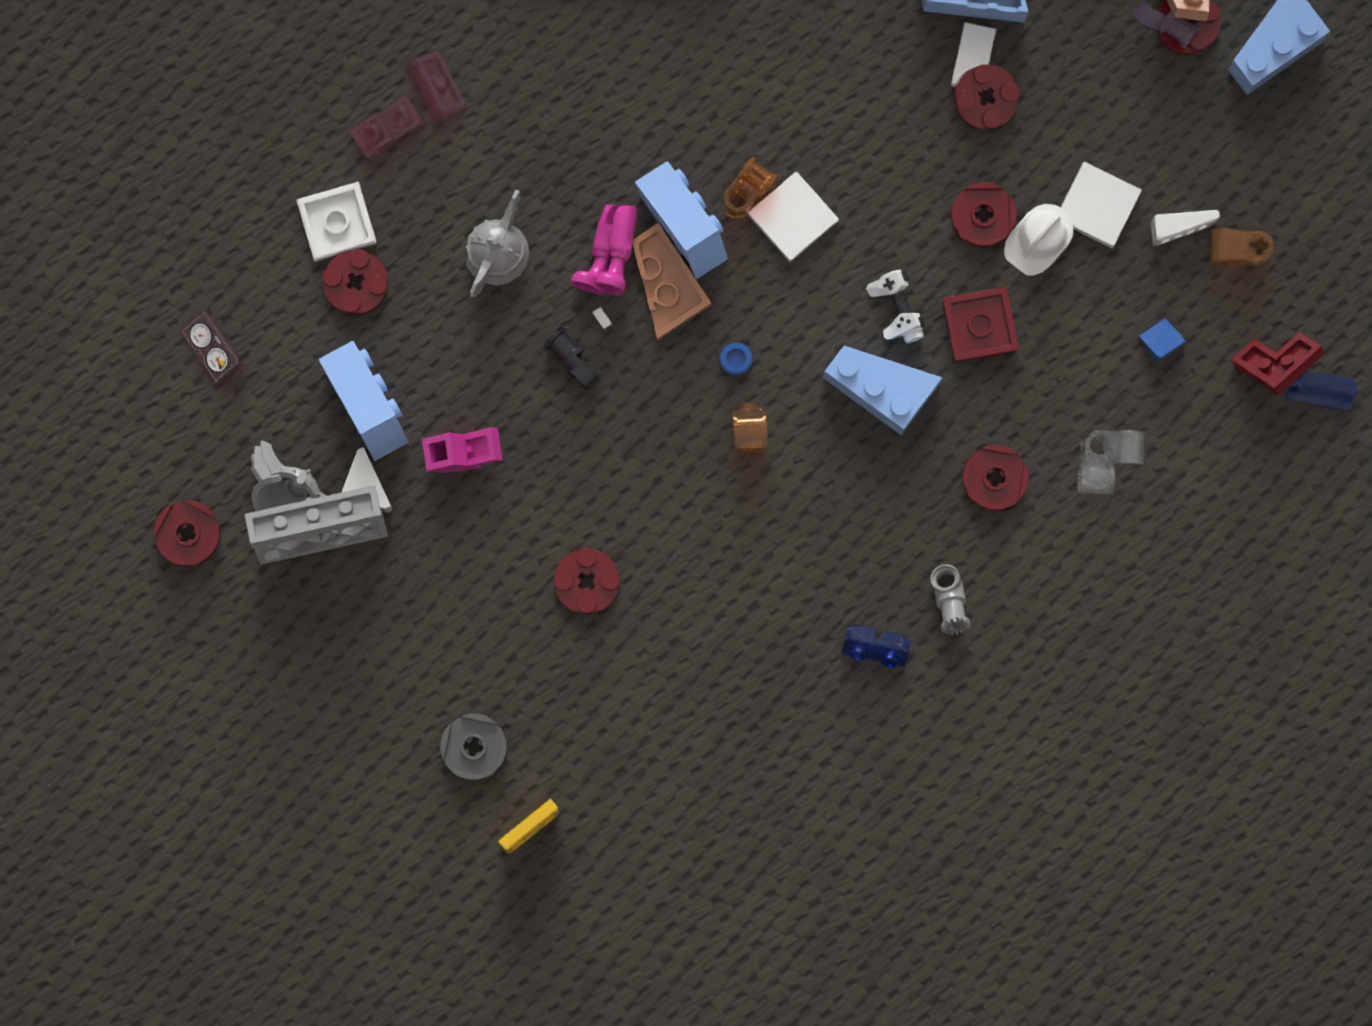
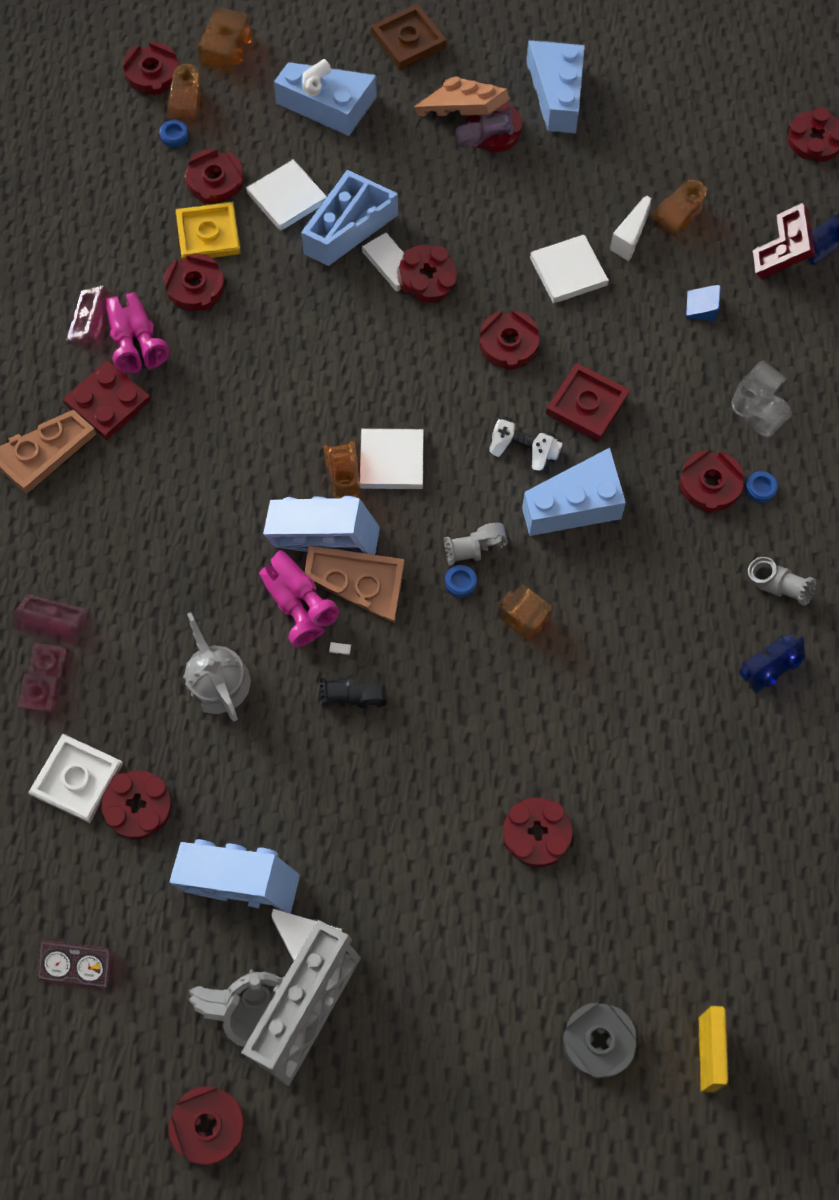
camera: 45 degrees left, 15 degrees down
(461, 451) = (349, 835): dark pink brick -> none
(768, 341) = (470, 546): none -> light grey connector
(1026, 520) = (761, 487): none -> blue tile
(1039, 239) = (559, 320): white piece -> none

